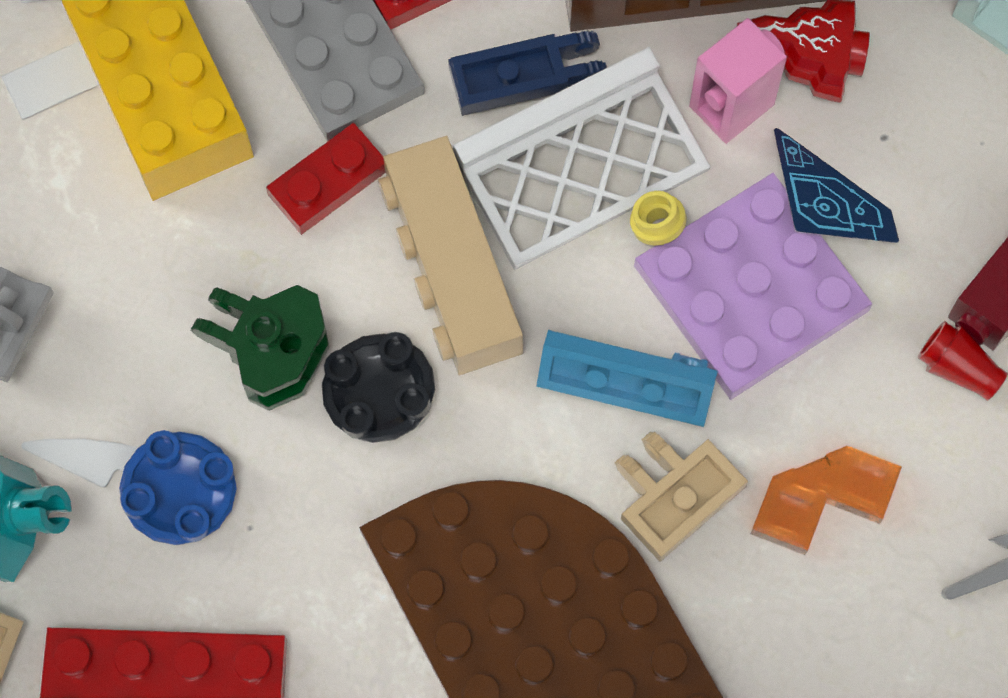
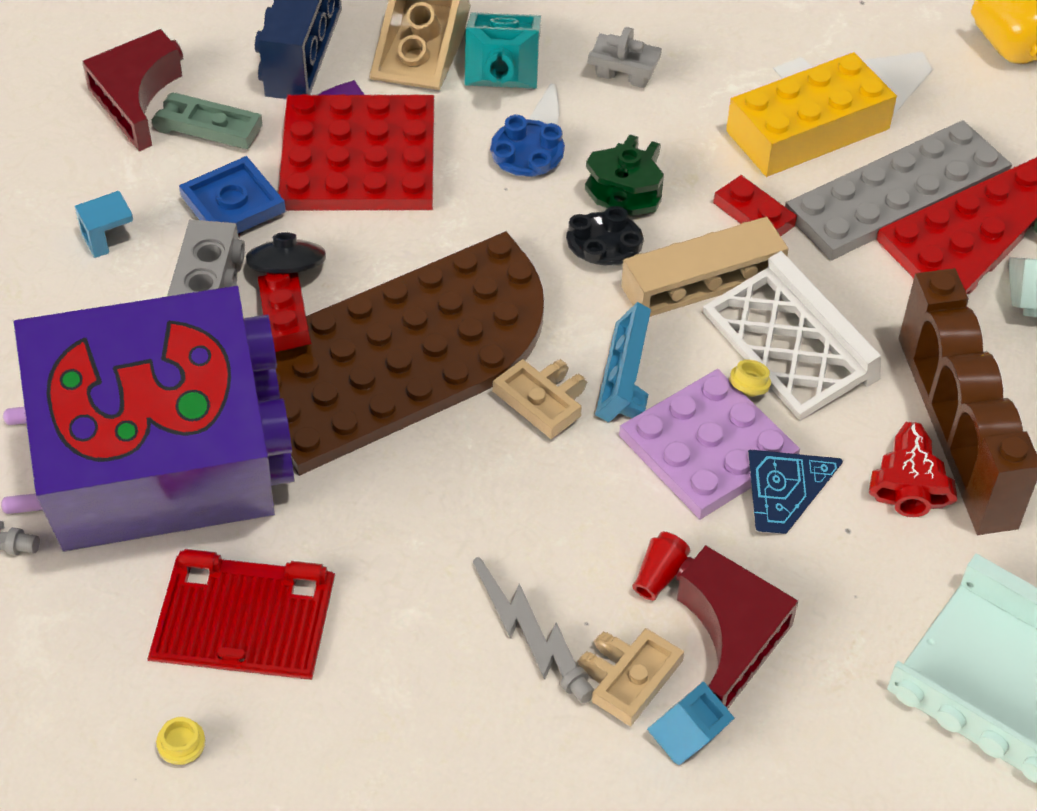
camera: 85 degrees right, 20 degrees down
(521, 70) = (855, 300): dark blue hinge -> none
(737, 79) = (864, 408): bright pink brick -> none
(841, 479) = (546, 470): clear orange tile -> none

